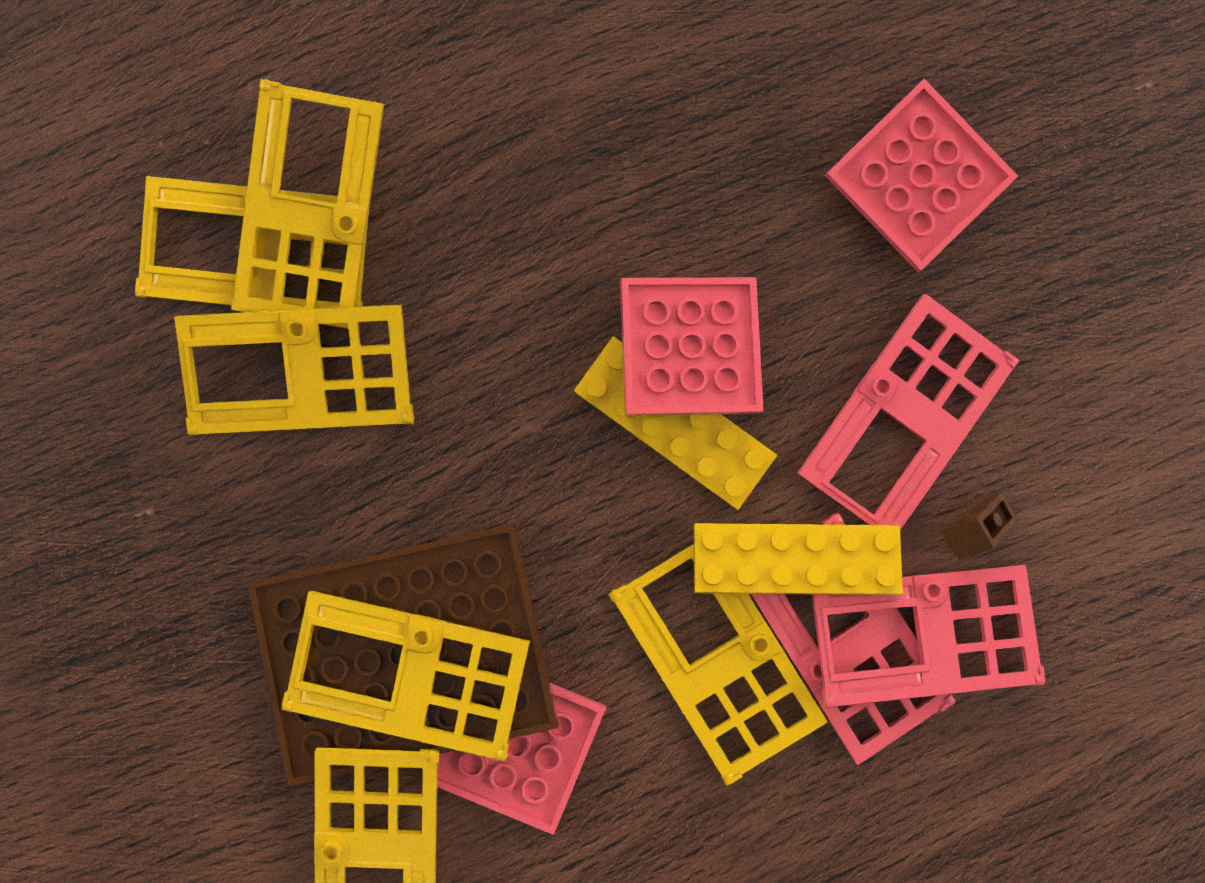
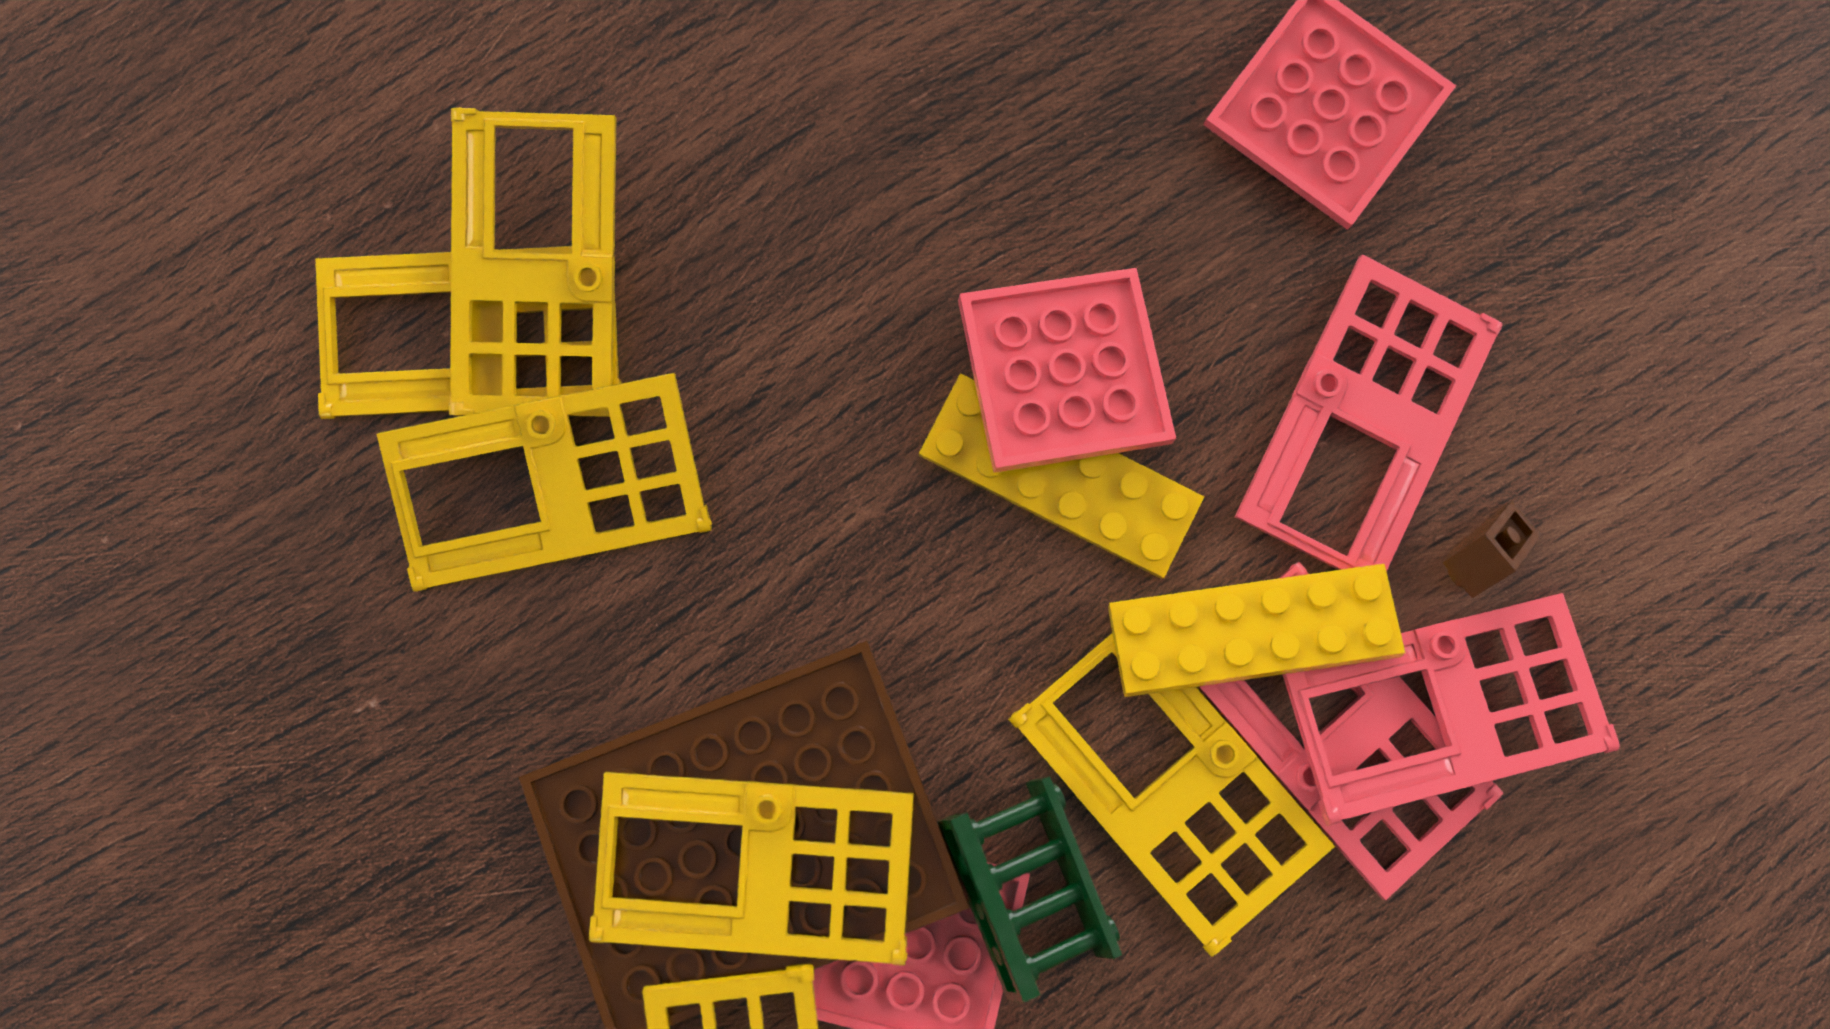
camera: 10 degrees left, 5 degrees down
(571, 710) = (984, 881): none -> dark green fence

